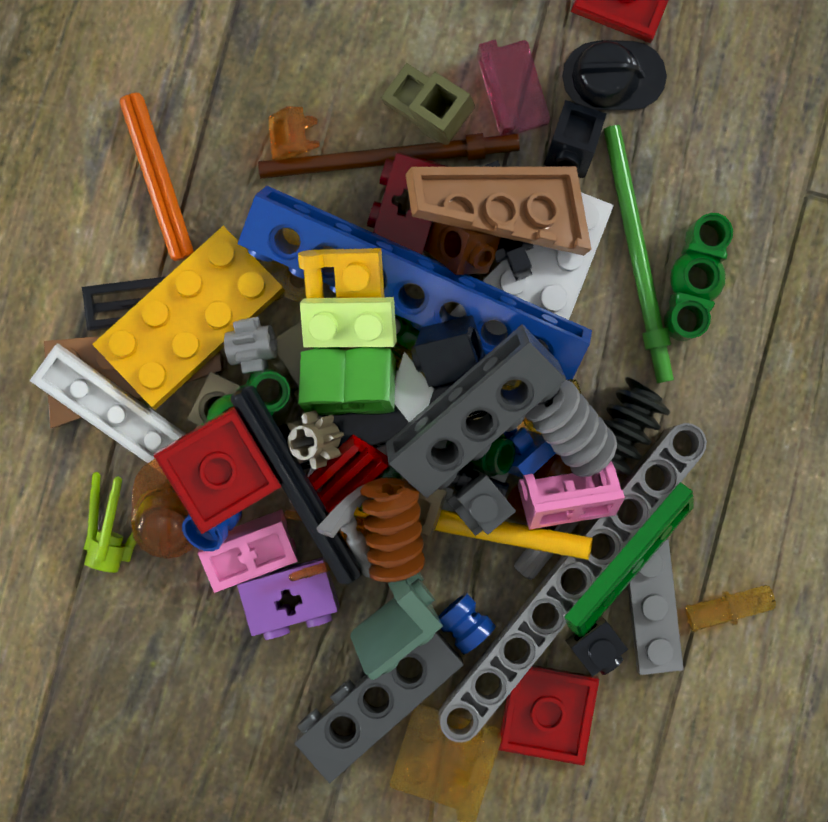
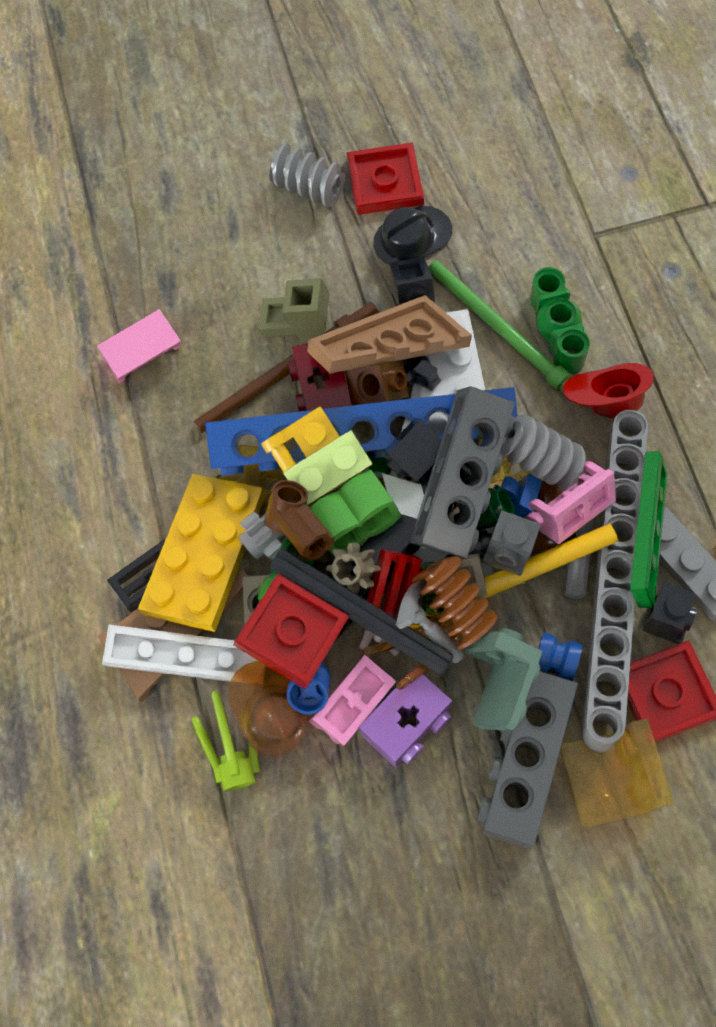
camera: 25 degrees left, 20 degrees down
(156, 176) = (122, 472): orange axle -> none
(246, 43) = (138, 345): none -> bright pink hinge
(284, 366) = (291, 516): none -> reddish brown piece
(288, 133) = (205, 387): clear orange tile -> none
(513, 86) = (346, 277): clear pink panel -> none
(631, 421) = (582, 426): pearl dark grey piece -> none
(694, 387) = (610, 389): none -> red piece

